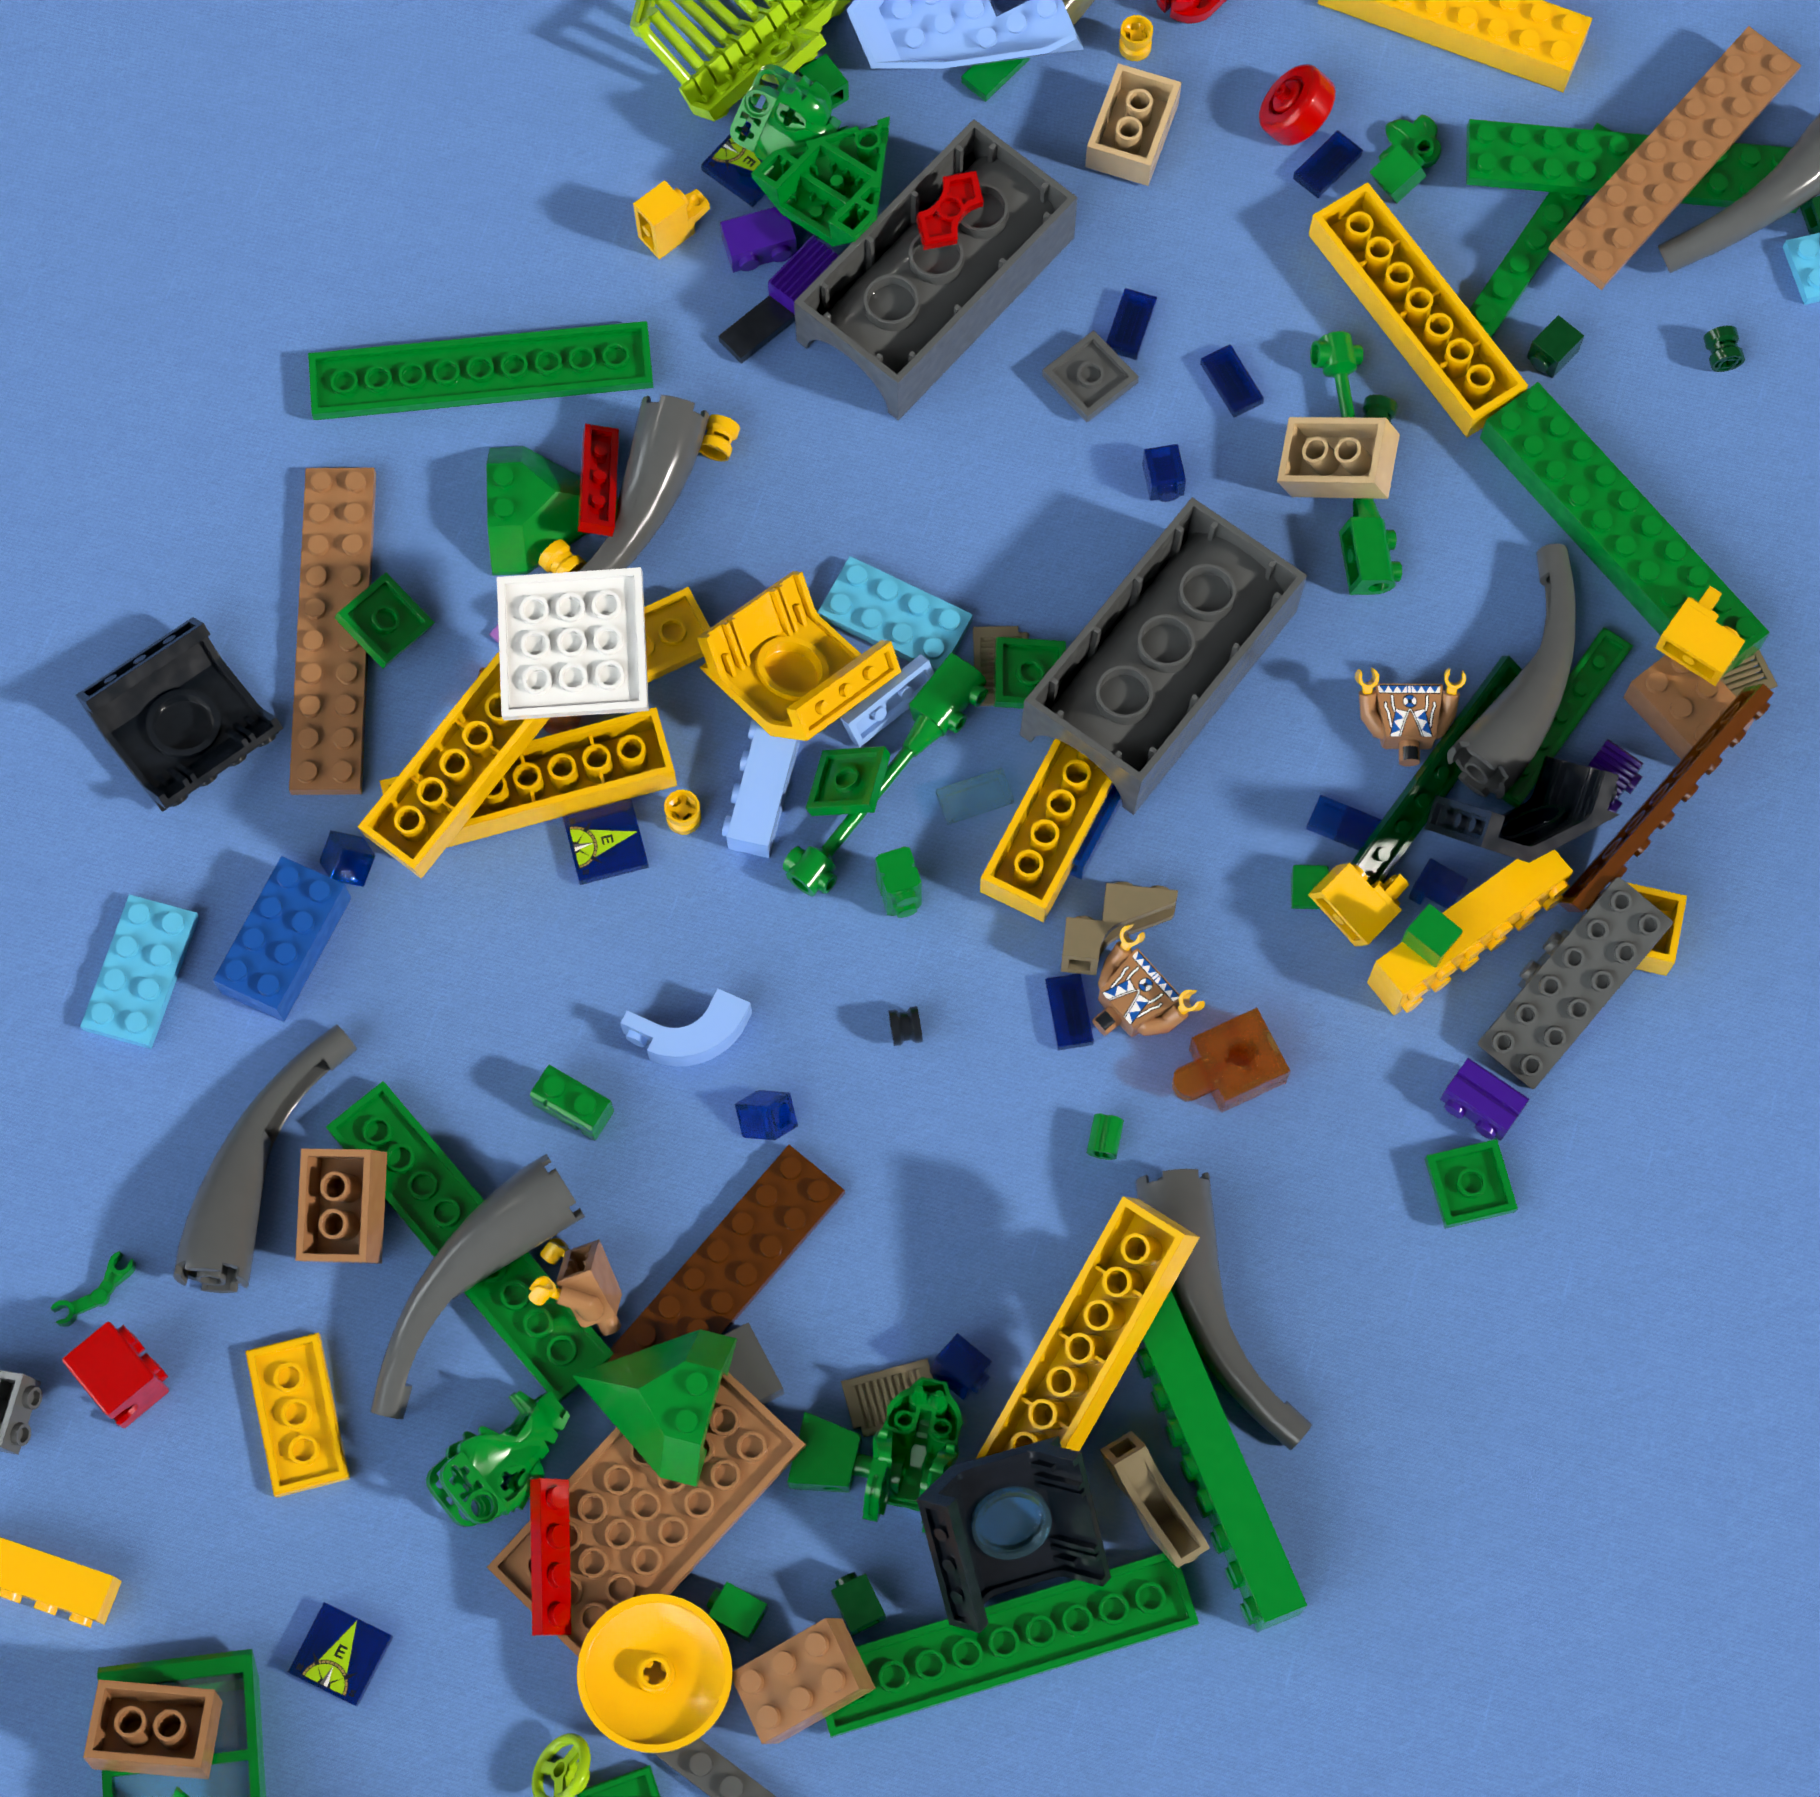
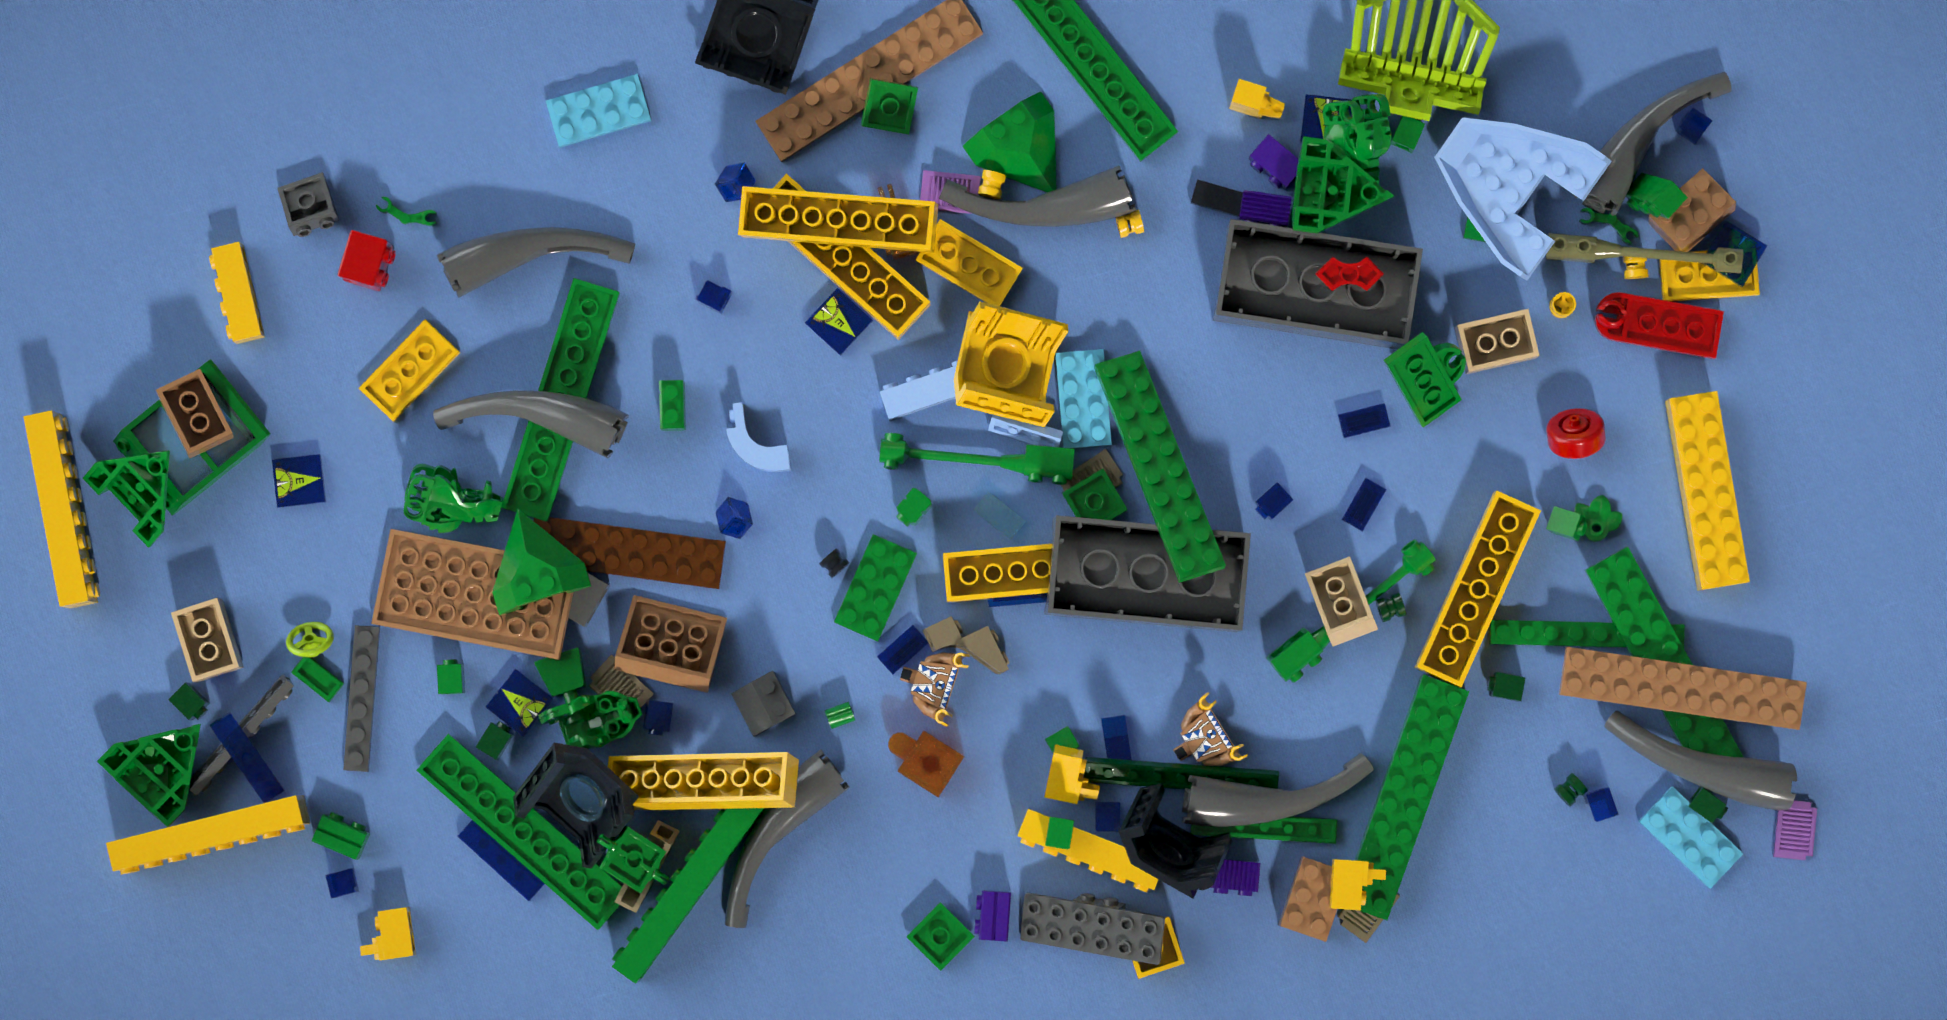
camera: 60 degrees right, 15 degrees up
(282, 938) = (664, 179): blue brick -> none
(341, 1206) = (532, 319): medium nougat brick -> none
(471, 971) = (714, 296): none -> clear blue panel
(550, 1557) = (414, 561): red plate -> none
(572, 644) = (919, 239): white plate -> none
(584, 1284) = (571, 483): medium nougat torso -> none
(598, 480) = (1054, 172): red plate -> none
(654, 1673) = (388, 656): yellow dish -> none
(682, 804) = (881, 351): yellow wheel -> none
(802, 1680) = (433, 737): medium nougat brick -> none
(827, 1541) = (519, 702): none -> clear blue tile
(848, 781) = (958, 439): green plate -> none
(877, 1294) = (670, 643): none -> medium nougat slope
(969, 998) = (875, 587): none -> green plate
(1024, 1698) = (501, 860): none -> clear blue tile
(1029, 1222) = (763, 703): none -> dark grey slope
(1042, 556) = (1159, 466): none -> green plate
(1090, 376) = (1311, 418): dark grey plate -> none
(1121, 210) = (1427, 376): none -> green plate
(1136, 1504) = (632, 859): none -> green plate
(1327, 164) = (1551, 475): clear blue tile -> none
(1677, 786) = (1237, 918): reddish brown plate -> none
(1761, 321) = (1601, 804): none -> clear blue panel

